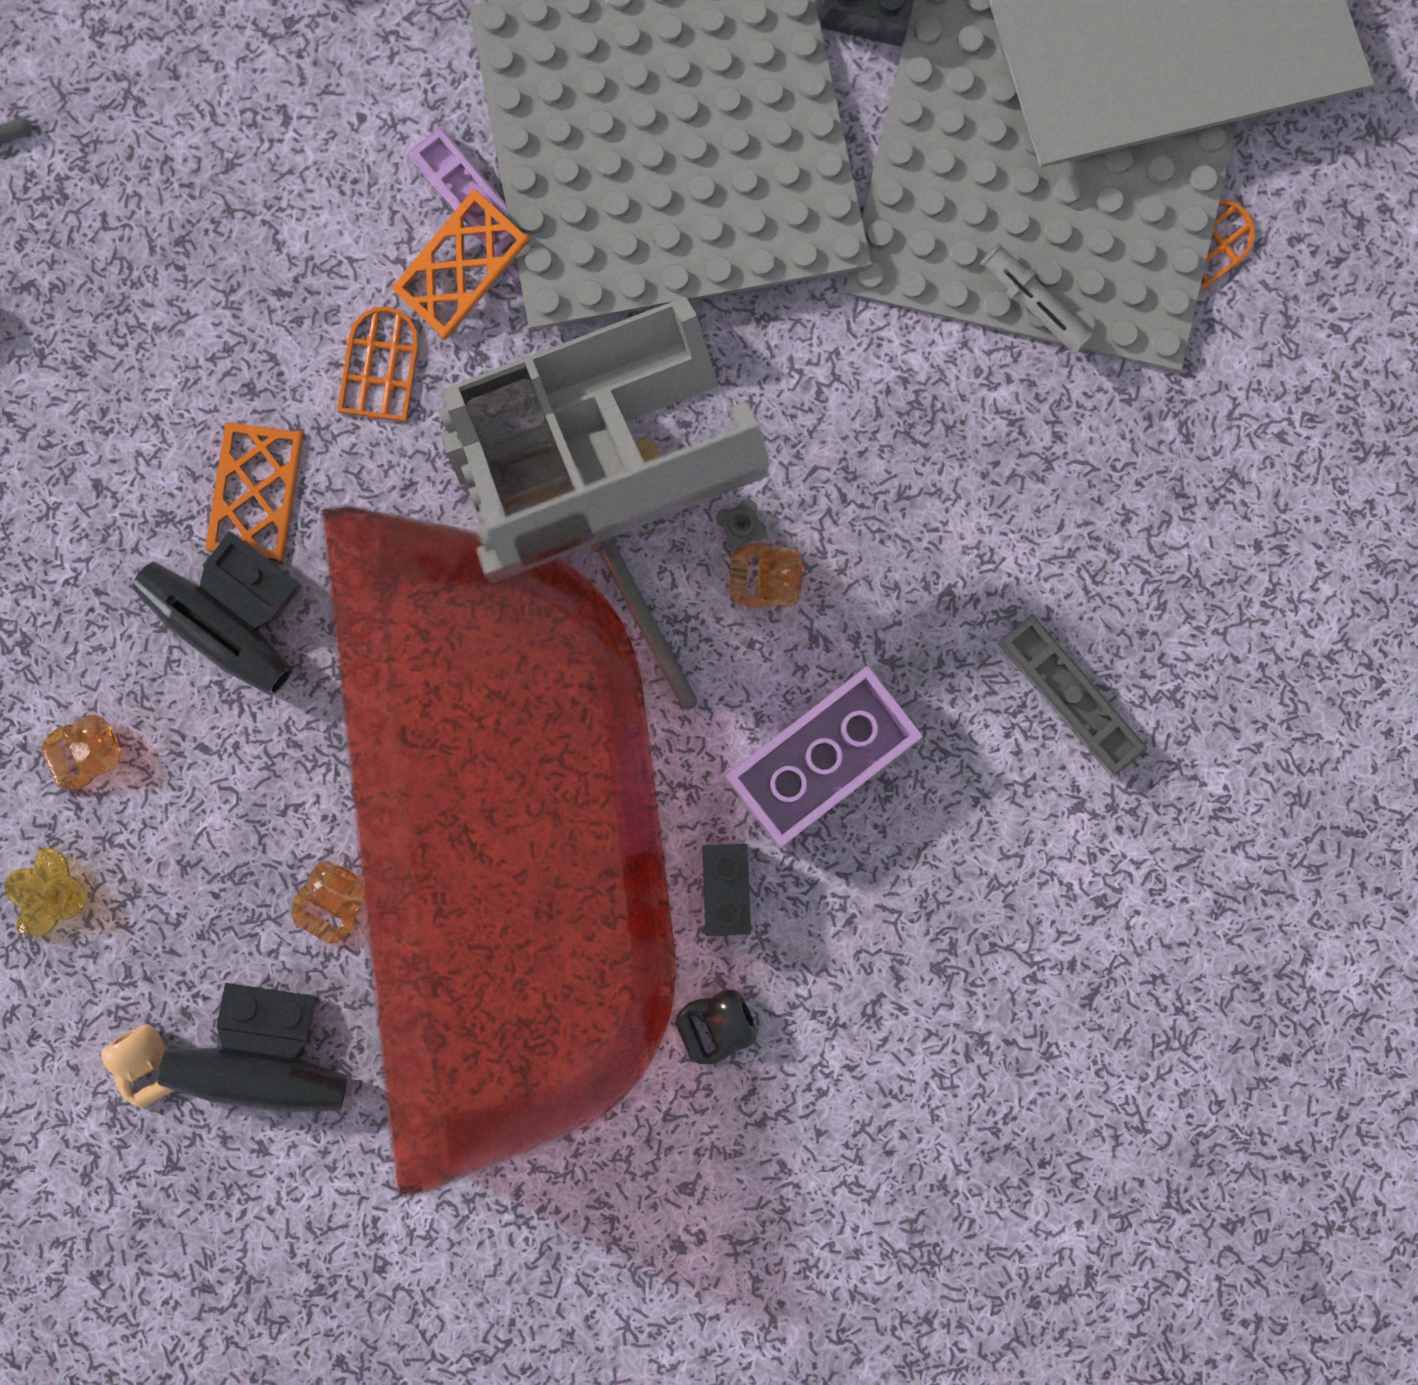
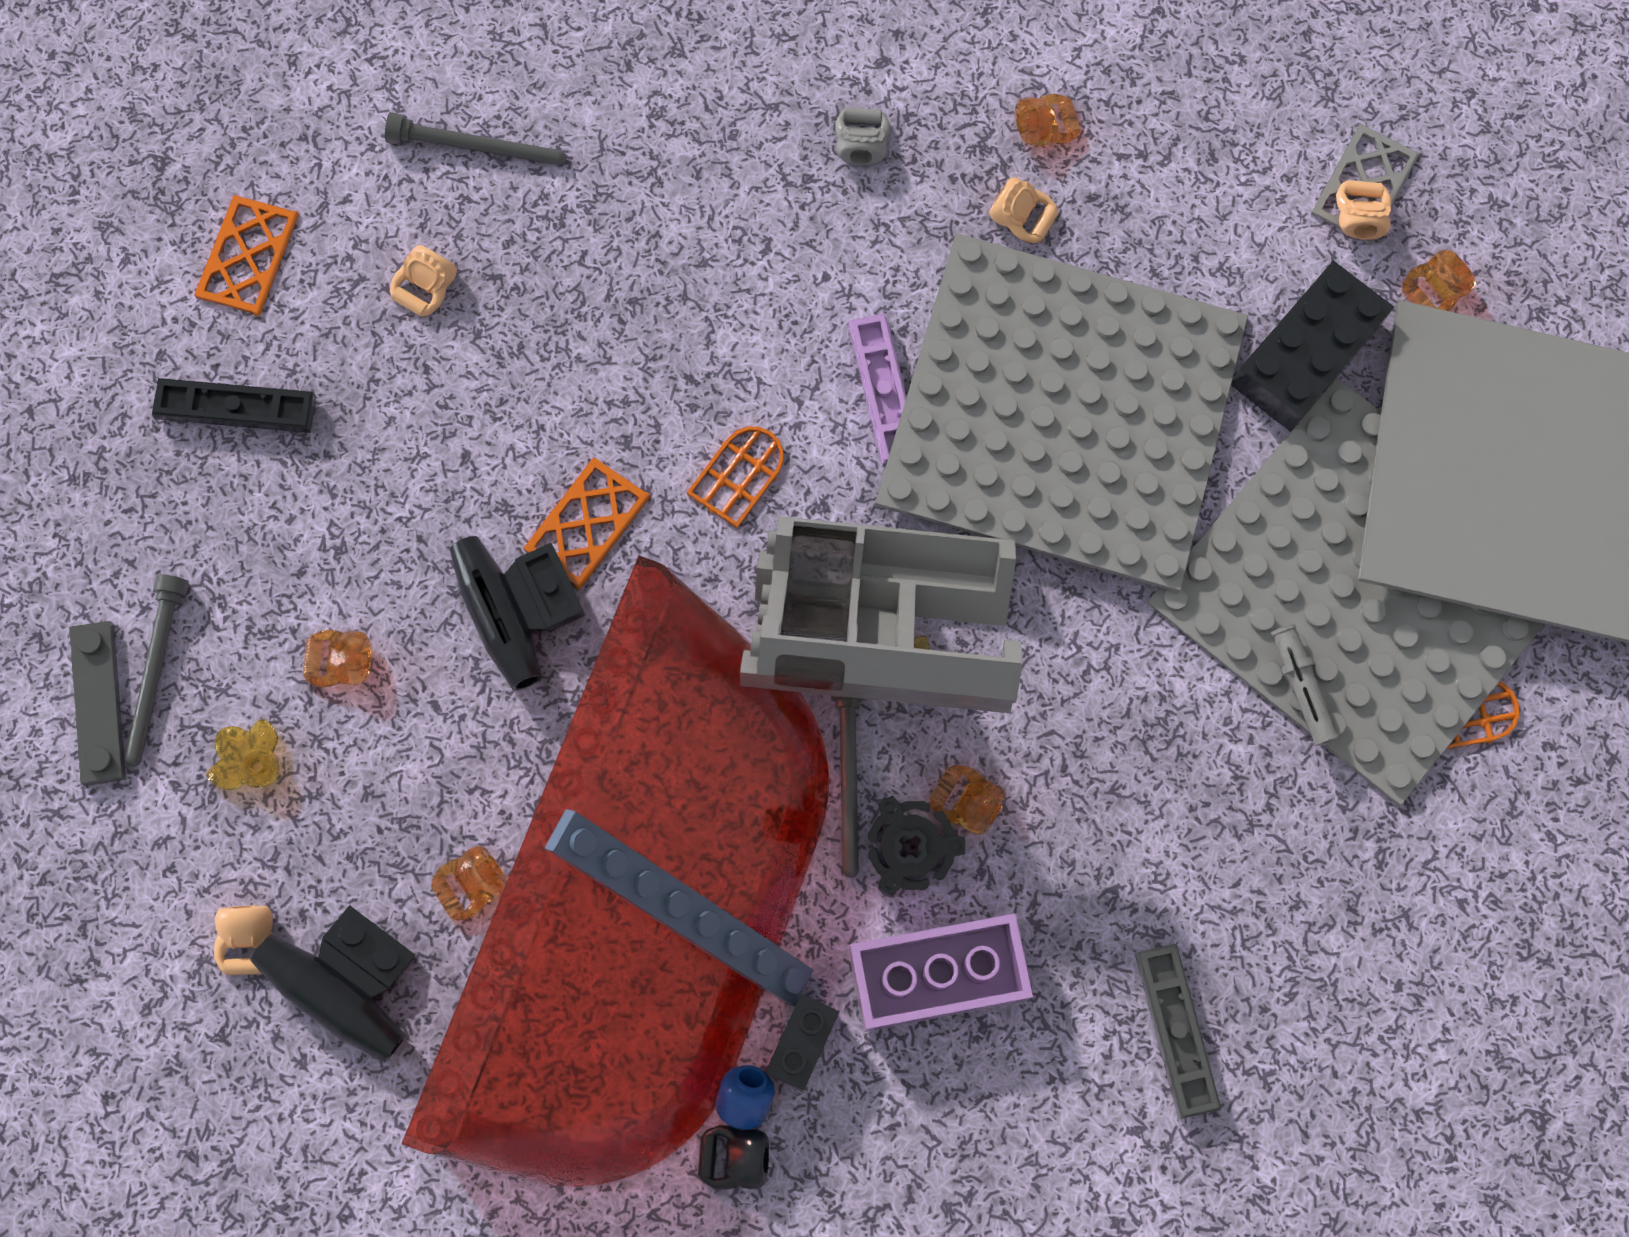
camera: 25 degrees right, 10 degrees down
(426, 263) = (818, 412): orange window -> none
(539, 830) = (677, 907): none -> sand blue plate
(698, 968) = (744, 1097): none -> blue head
(723, 635) = (907, 827): none -> black piece
(738, 536) = (958, 753): dark grey plate -> none

